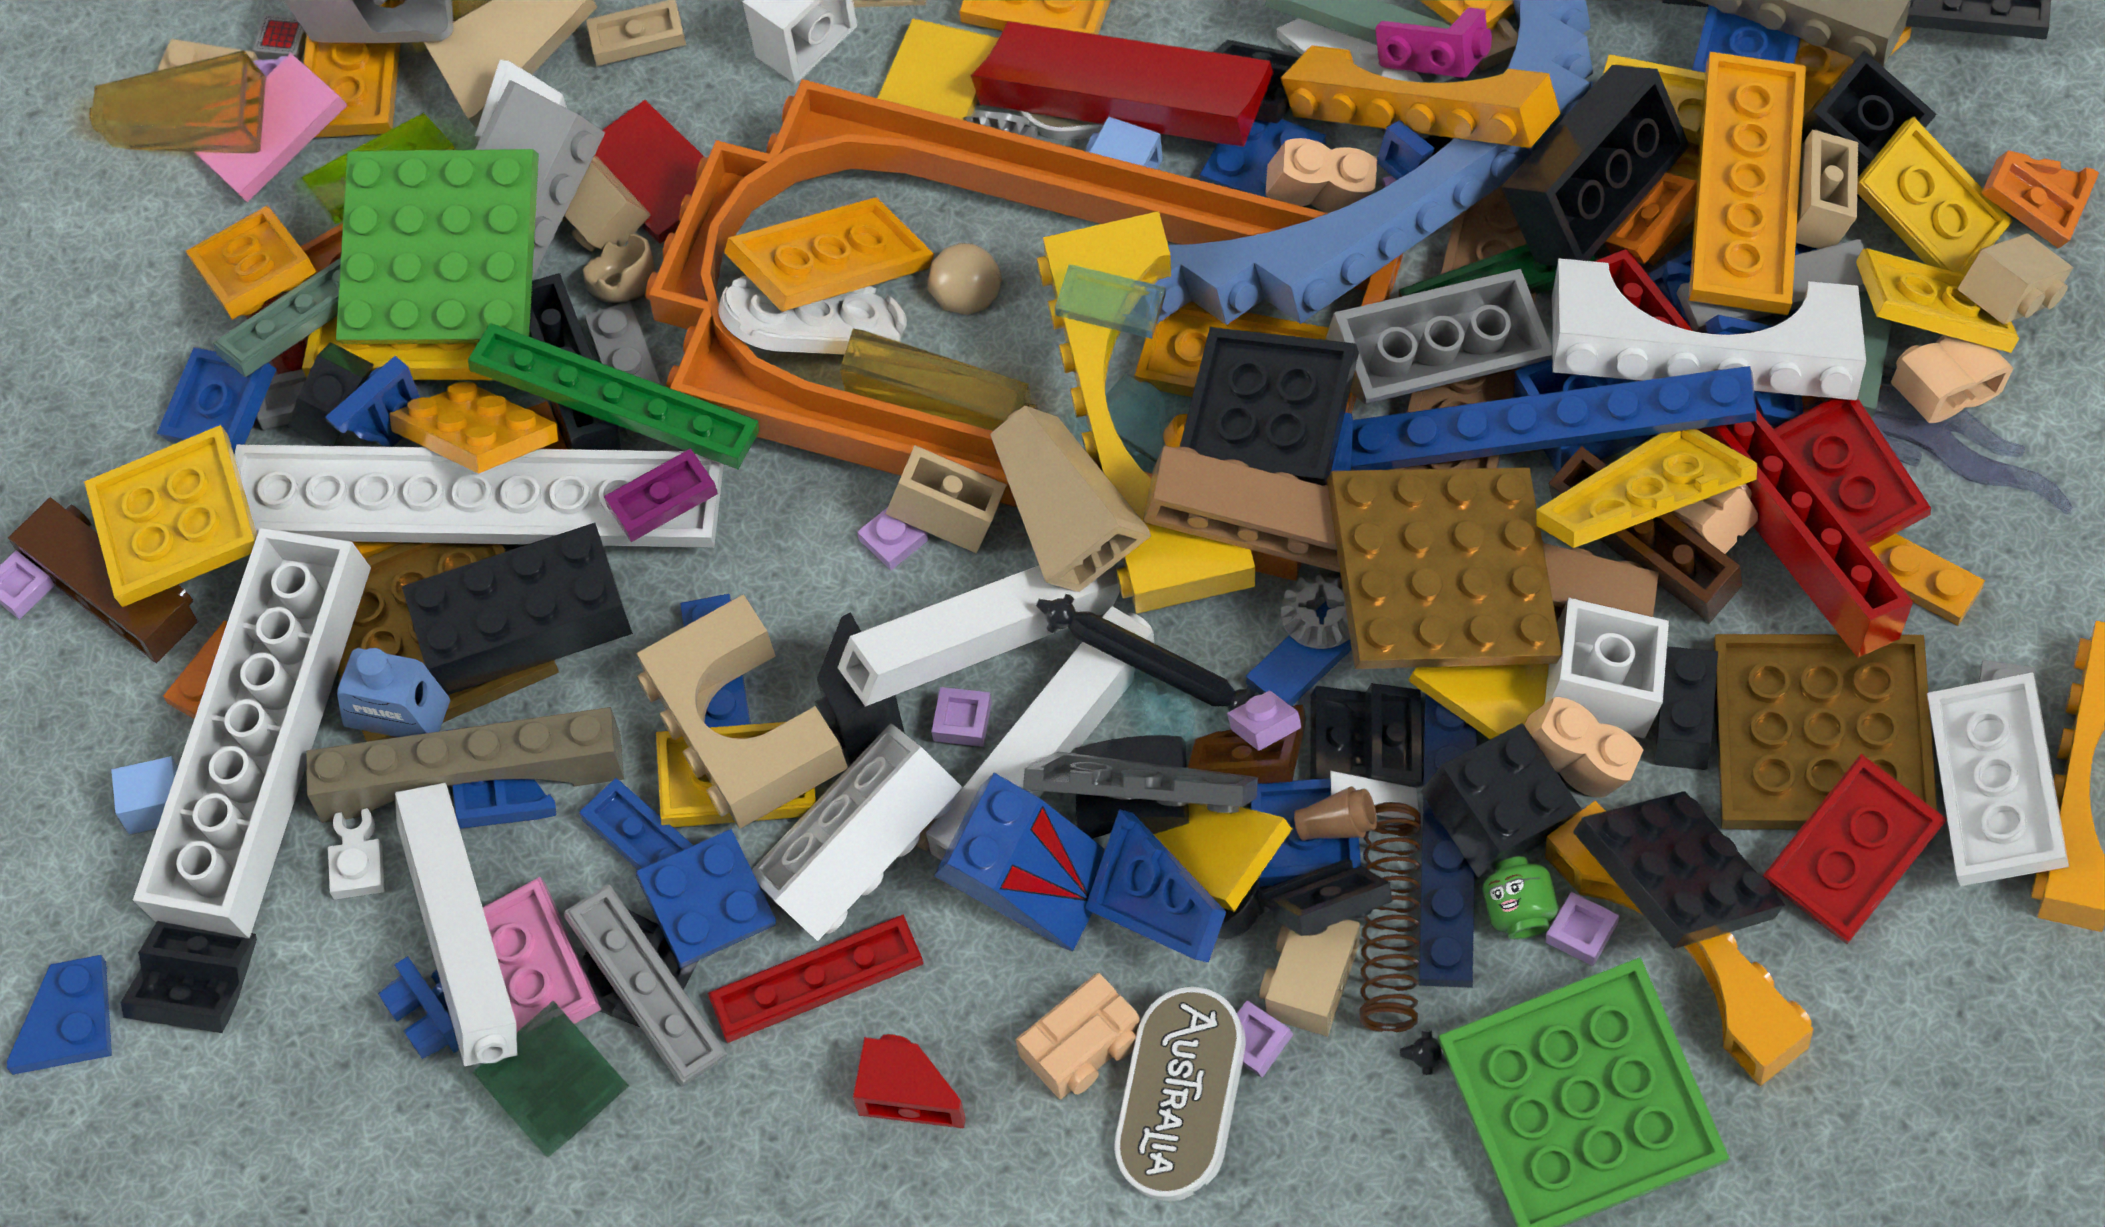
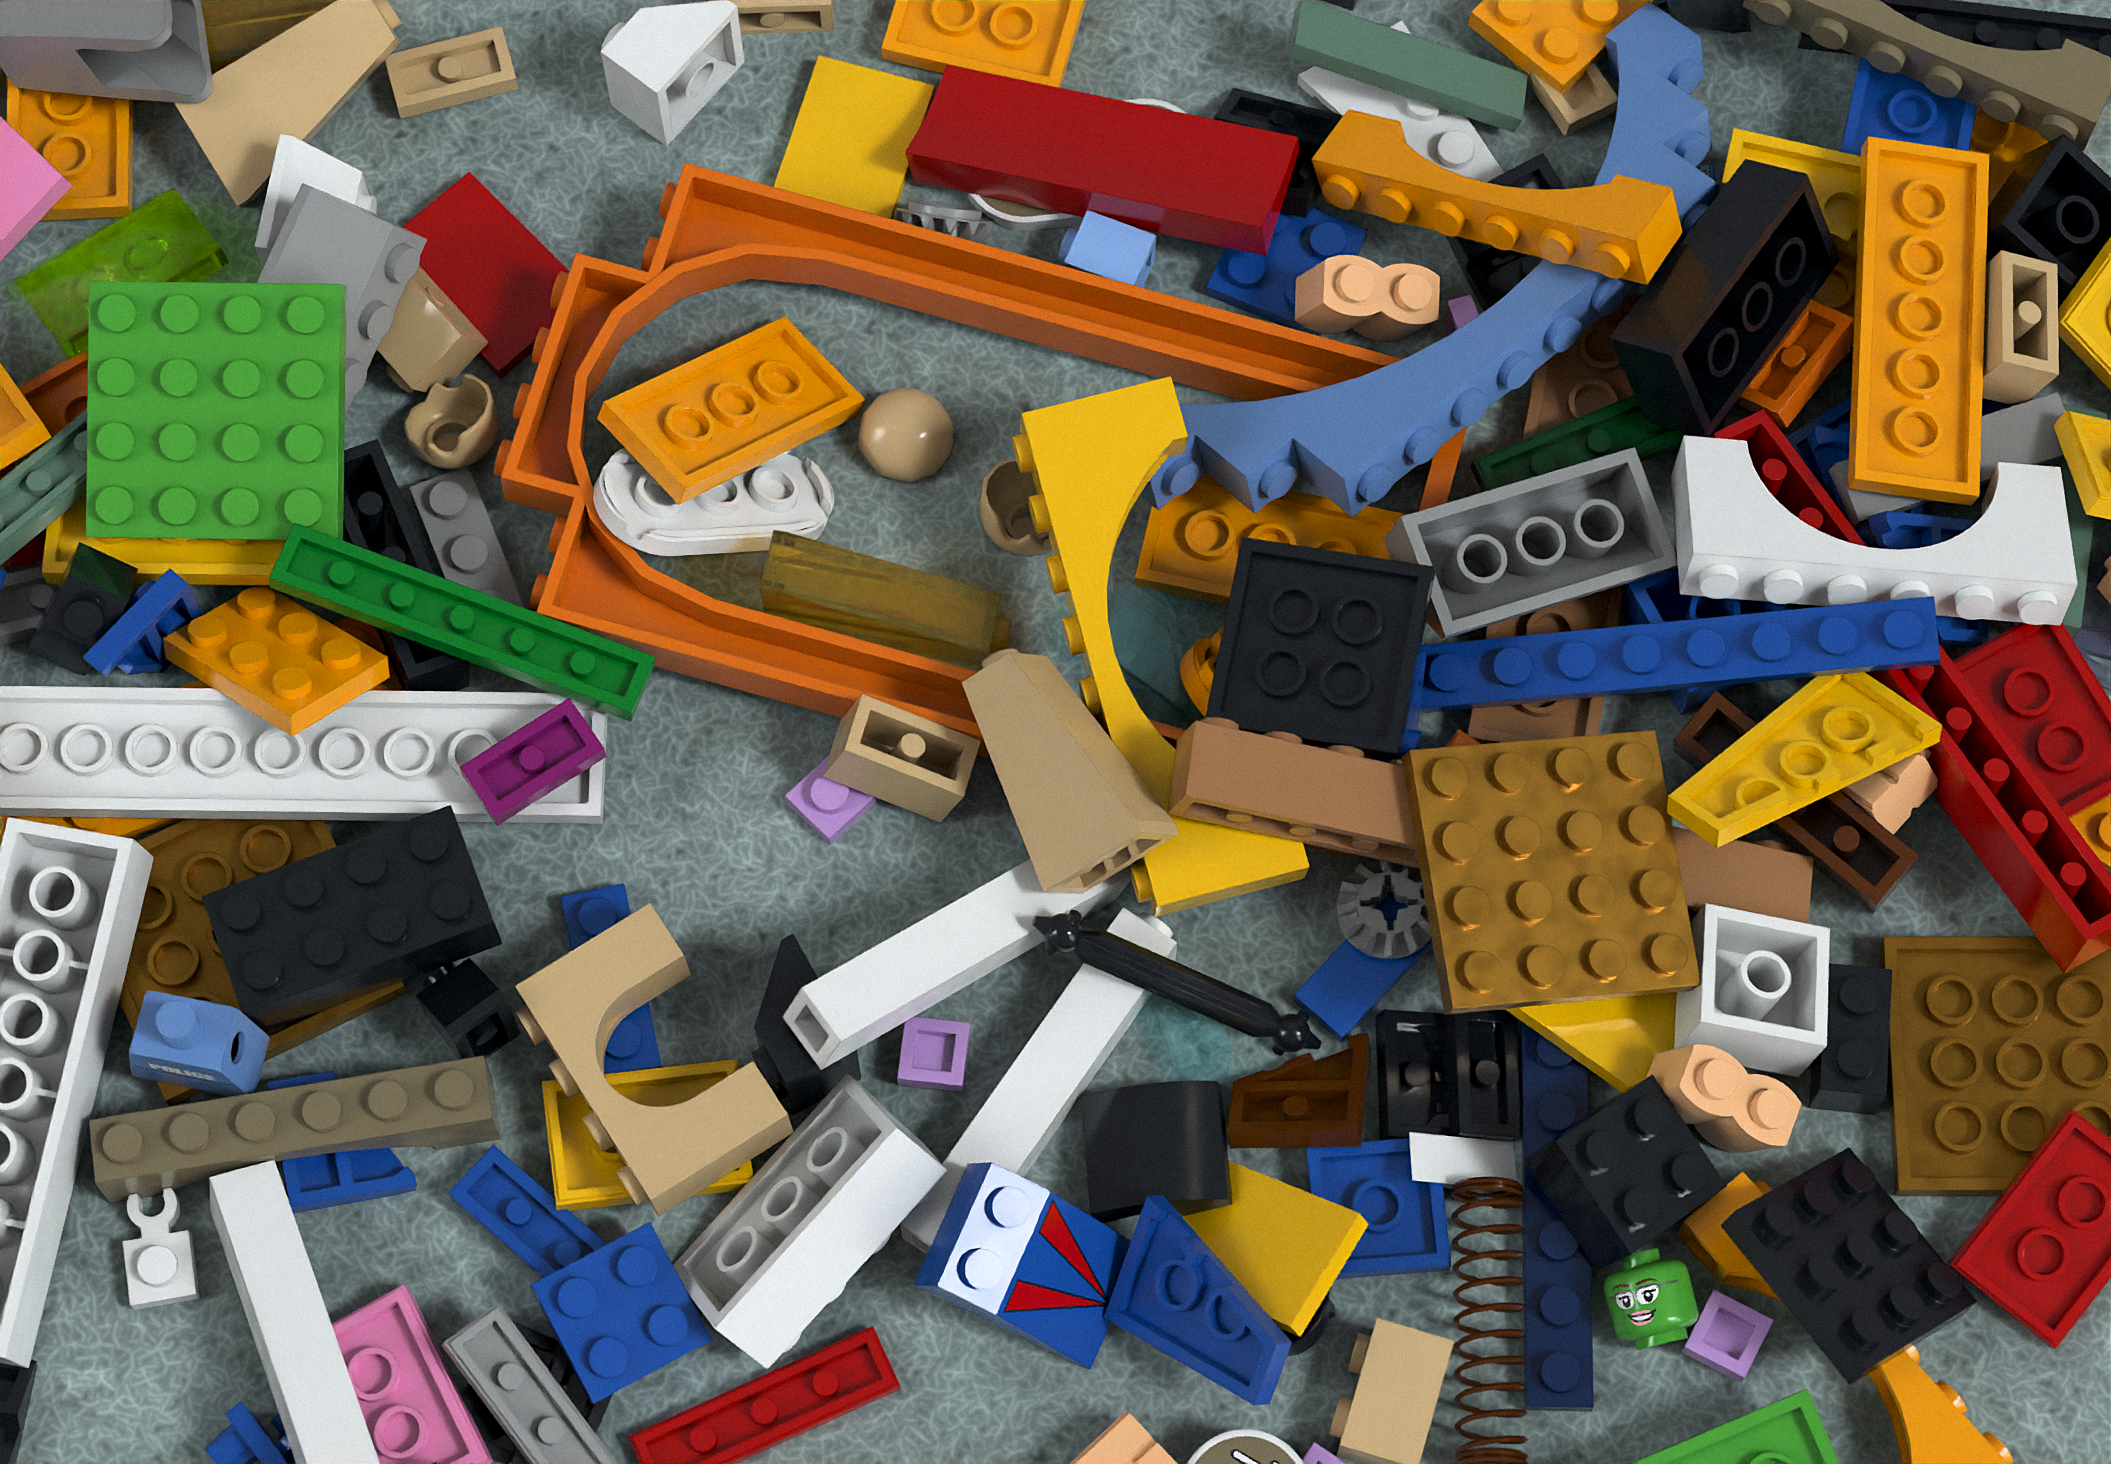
camera: 10 degrees left, 10 degrees up
(604, 679) = (467, 1010): none -> black slope
(1035, 327) = (1002, 501): none -> tan hair
(1110, 301) = (1113, 505): clear light blue tile -> none
(1140, 780) = (1159, 1157): dark grey wing -> none
(1264, 720) = (1322, 1061): lavender plate -> none
(1325, 897) = (1412, 1312): black plate -> none
(1338, 816) = (1423, 1198): medium nougat cone -> none
(1402, 150) = (1477, 274): blue plate -> none
(1435, 49) = (1511, 121): dark pink bracket -> none

